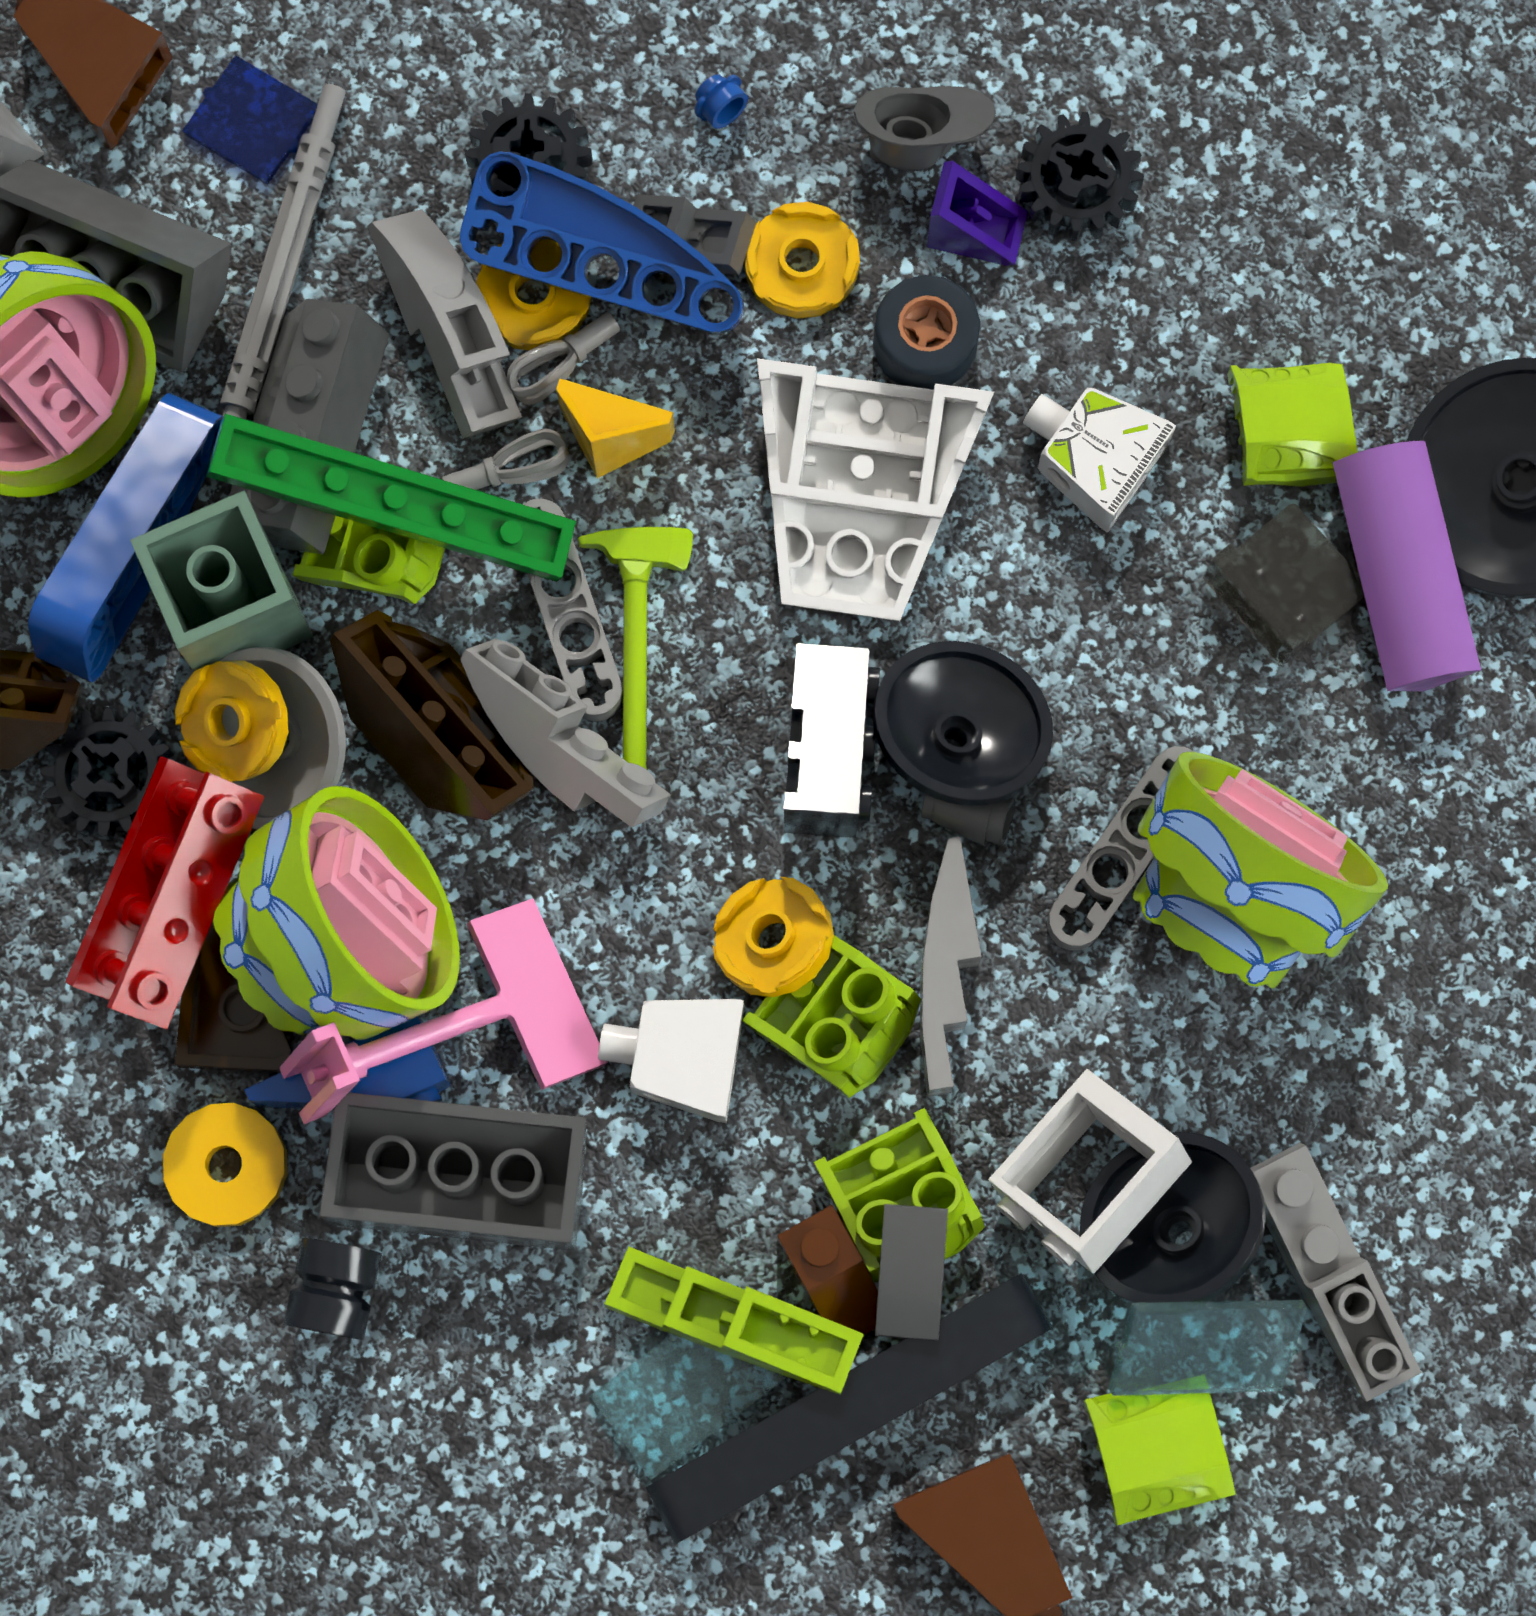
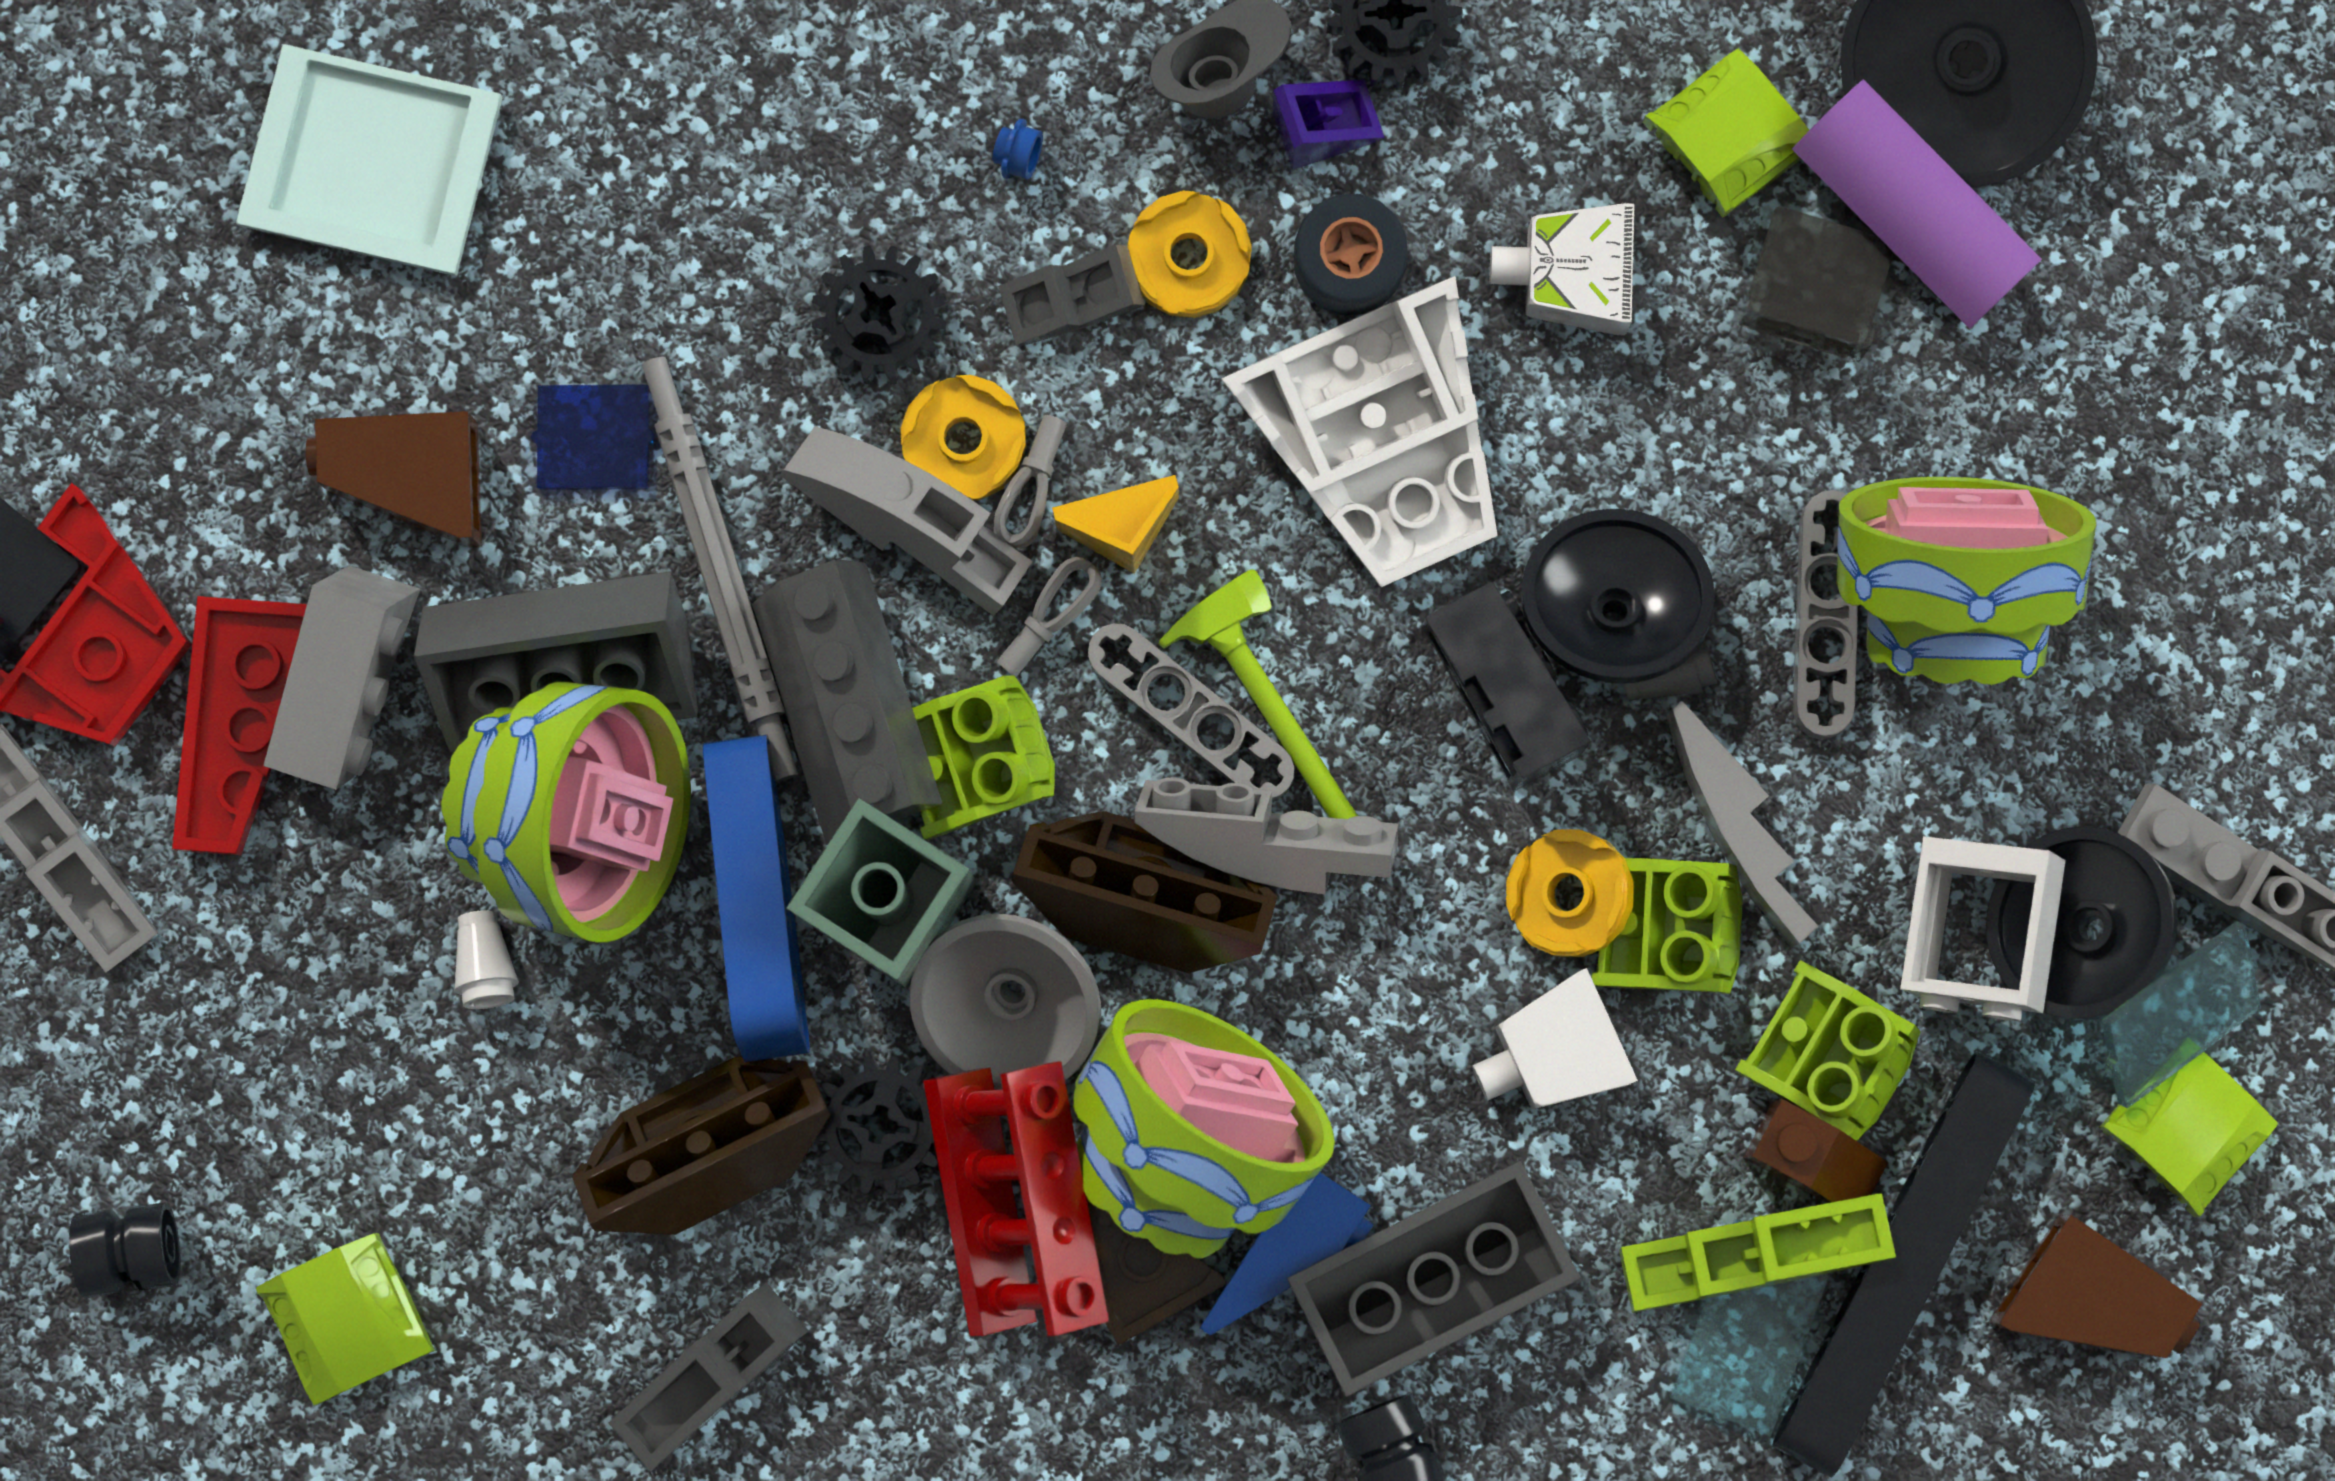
camera: 30 degrees left, 5 degrees up
(190, 1152) = (1211, 1443): yellow tile -> none
(260, 715) = (975, 976): yellow tile -> none
(390, 498) = (983, 718): green plate -> none
(531, 994) = (1391, 1082): bright pink piece -> none
(588, 226) = (987, 350): blue beam -> none
(911, 1272) = (1889, 1113): dark grey slope -> none

